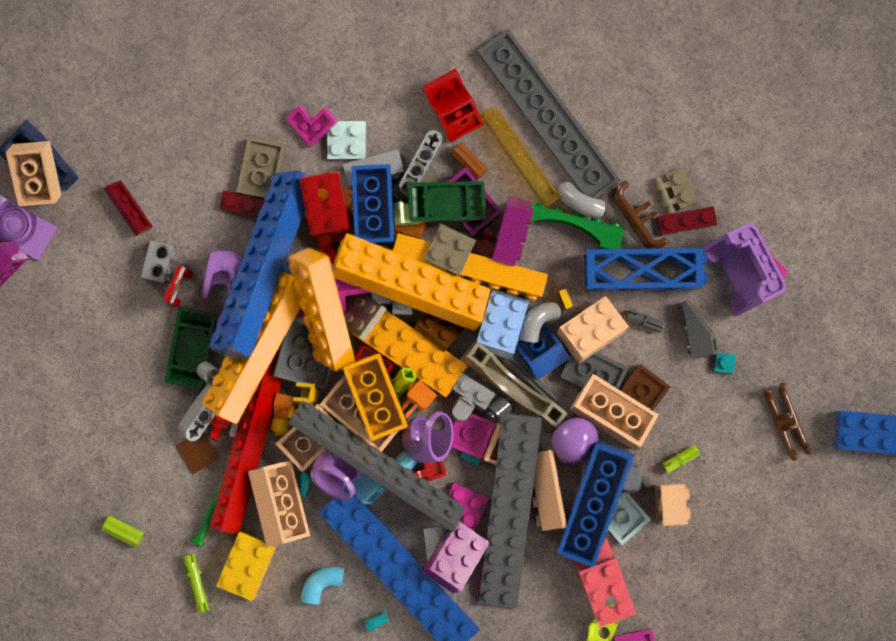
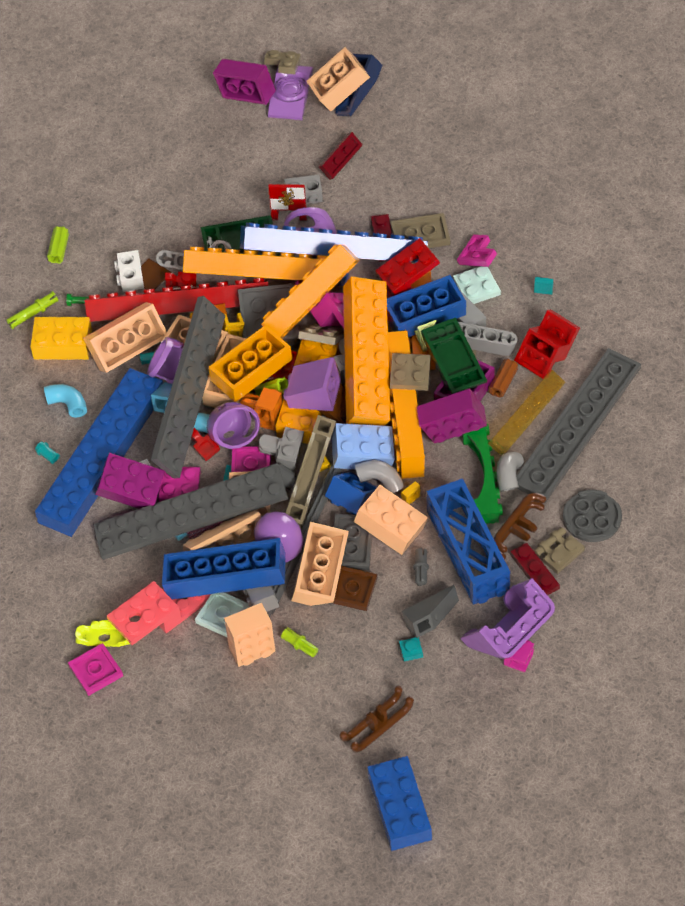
camera: 75 degrees right, 30 degrees down
(189, 466) = (130, 271): none -> white brick
(377, 78) = (543, 285): none -> teal tile
(427, 349) = (313, 385): none -> medium lavender slope
(650, 145) = (592, 516): none -> dark grey tile

